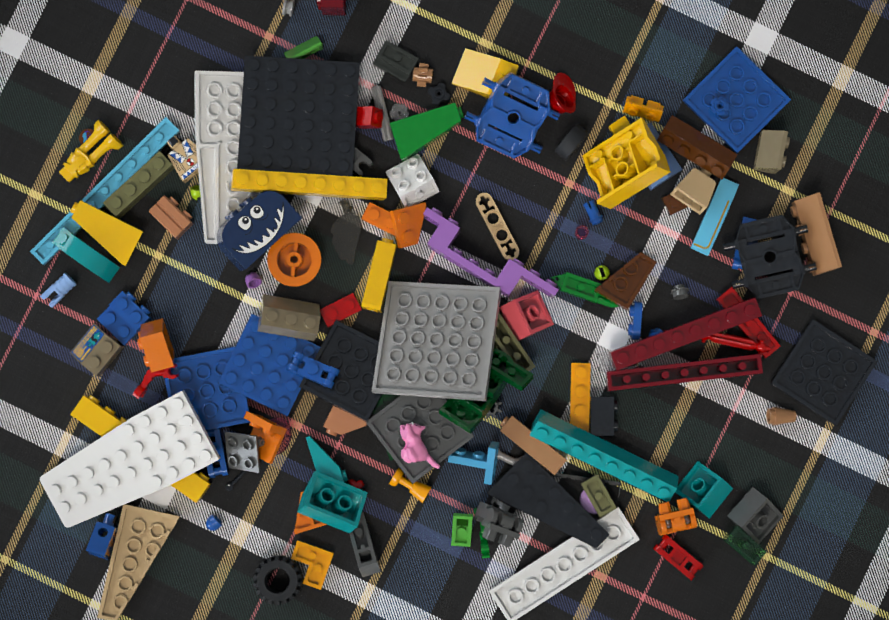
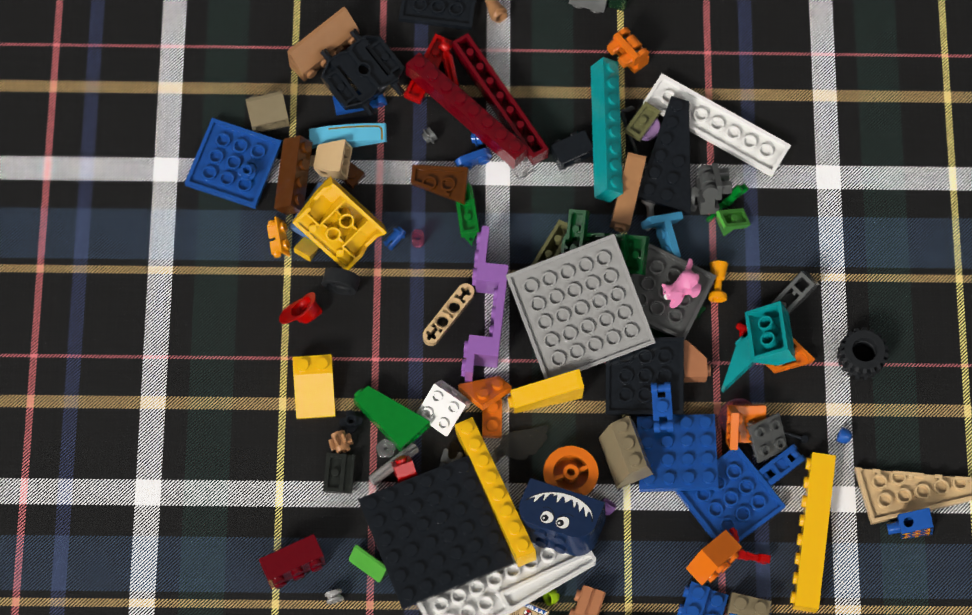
camera: 125 degrees left, 15 degrees down
(131, 461) = (831, 531): white wing -> none
(318, 562) = (825, 331): light orange plate -> none
(340, 309) = (593, 415): red plate -> none
(501, 106) = (357, 354): blue piece -> none
(526, 315) = (516, 250): coral slope -> none
(580, 395) = (563, 177): light orange plate -> none
(597, 273) = (447, 210): lime hinge -> none
(678, 557) = (659, 37): red plate -> none
(703, 489) = (590, 41): teal slope -> none

